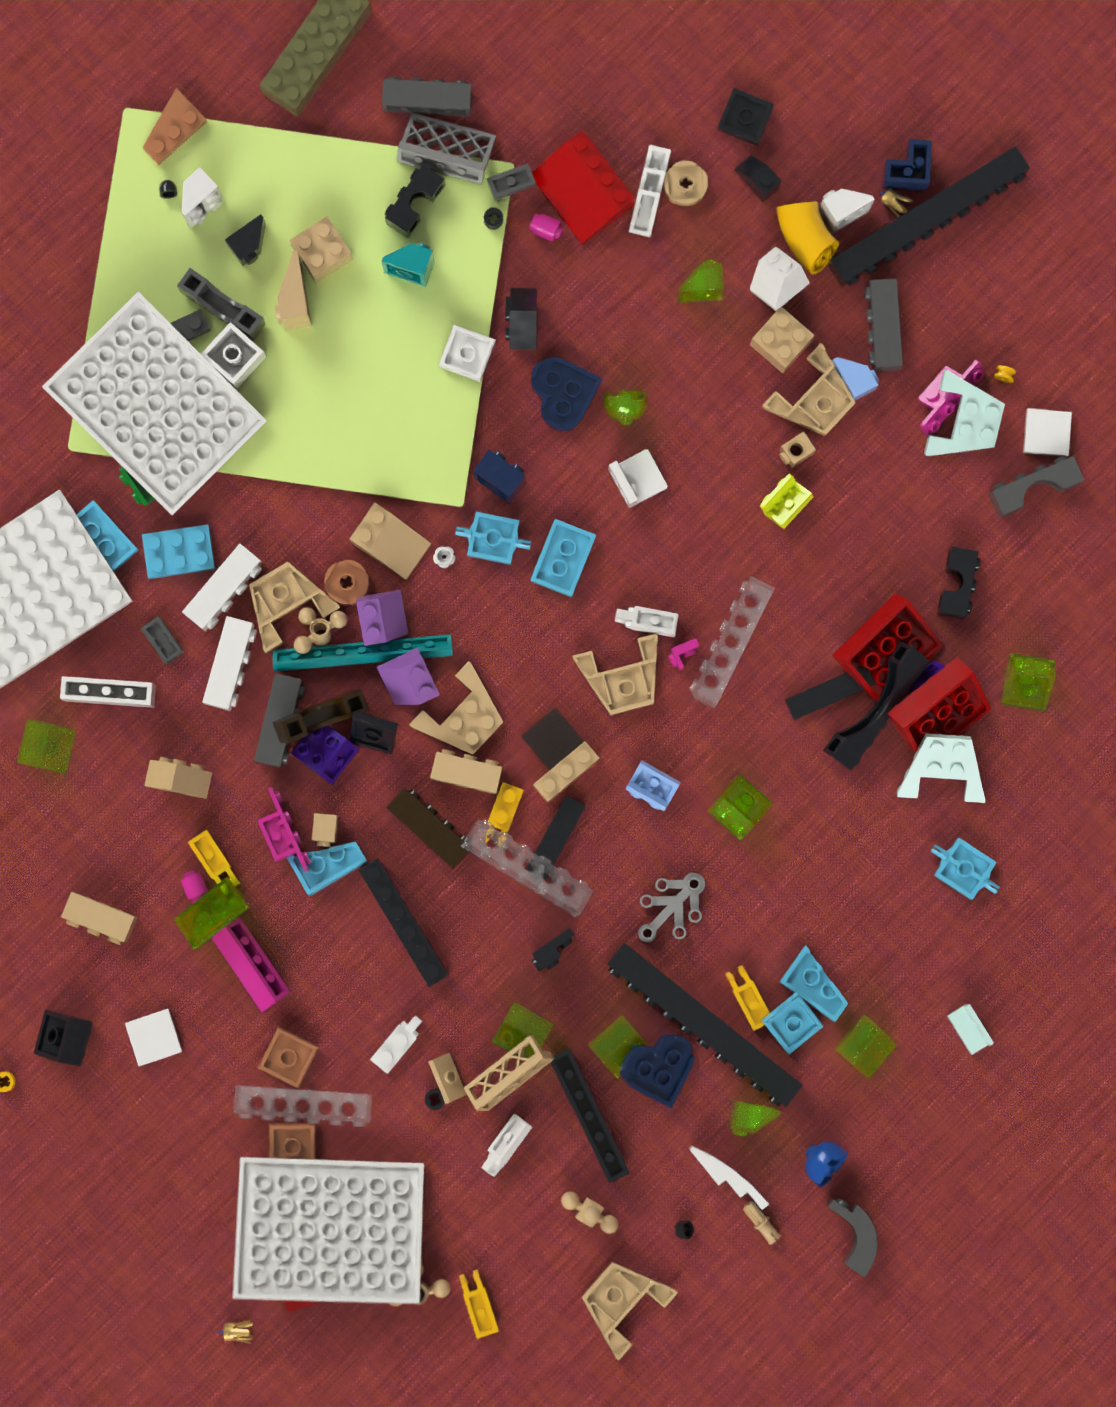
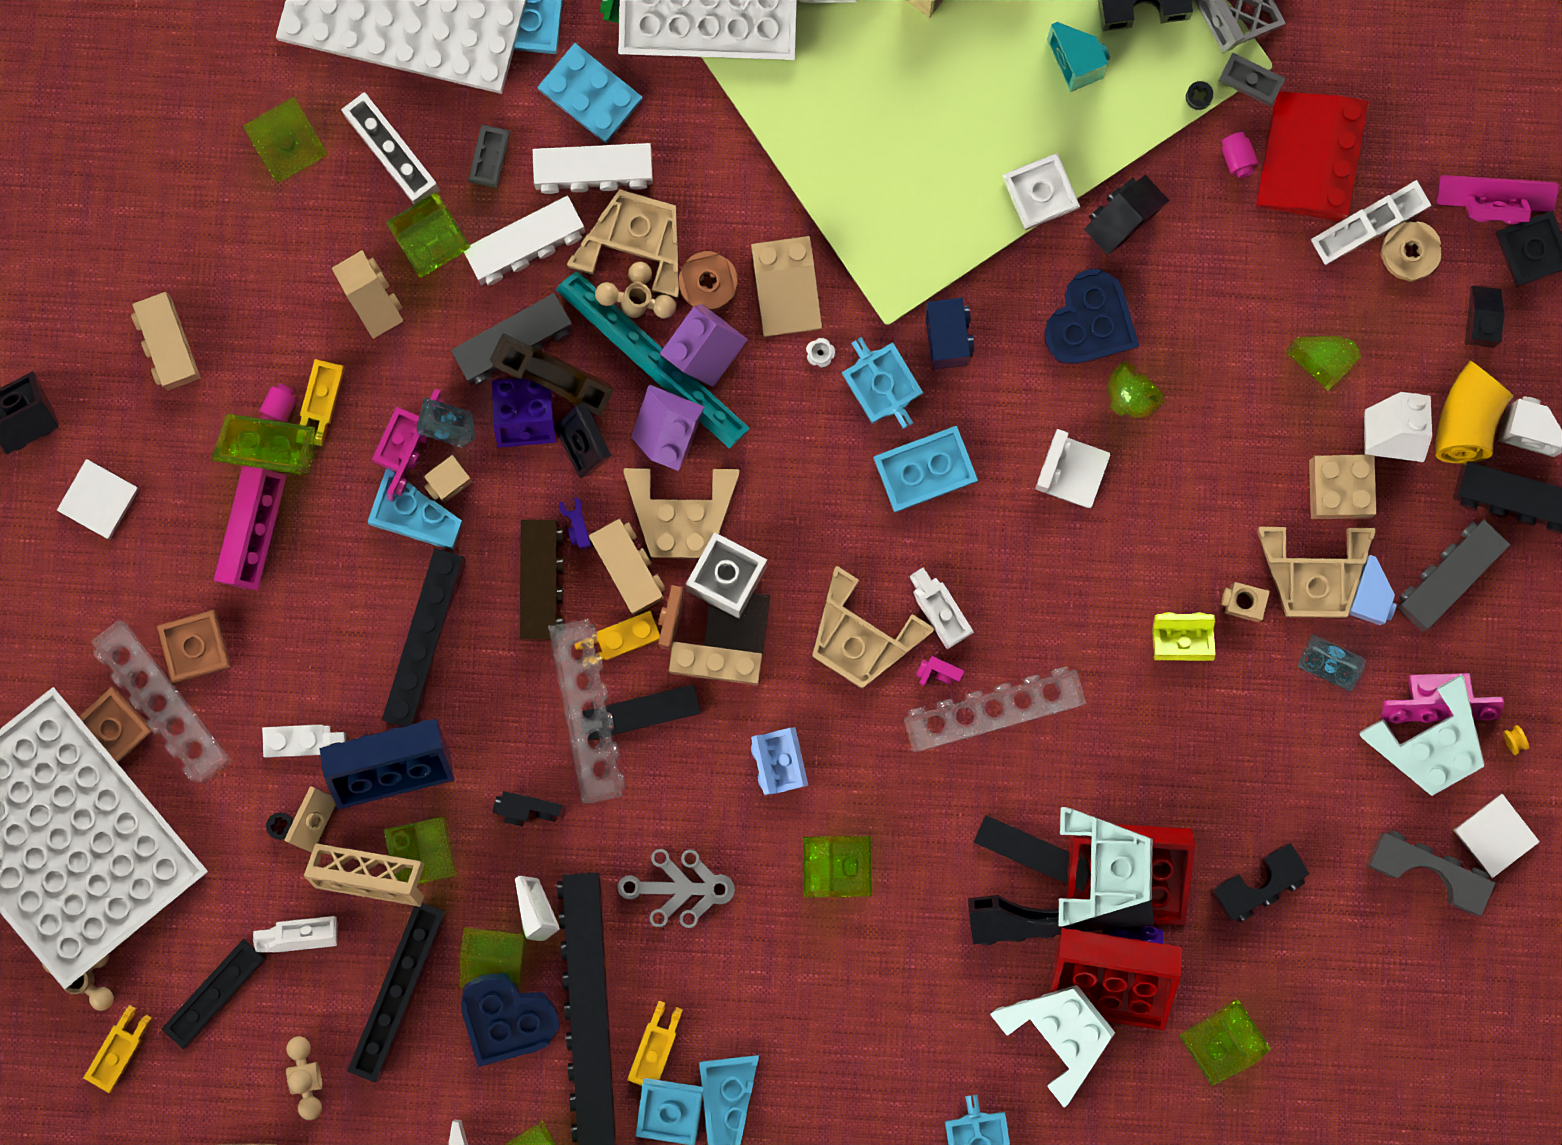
camera: 55 degrees right, 0 degrees up
(176, 714) = (428, 234): none -> clear neon green slope
(292, 800) = (445, 423): none -> clear light blue slope
(422, 782) = (577, 533): none -> dark purple plate
(456, 1006) = (386, 763): none -> dark blue brick
(495, 1222) = (213, 994): none -> black tile
(517, 773) = (670, 617): none -> nougat plate
(523, 721) = (726, 575): none -> white brick
(614, 997) = (535, 909): none -> white slope
(699, 110) = (1497, 198): none -> dark pink bracket
(872, 434) = (1331, 662): none -> clear light blue slope
(883, 652) = (1118, 867): none -> light aqua wing

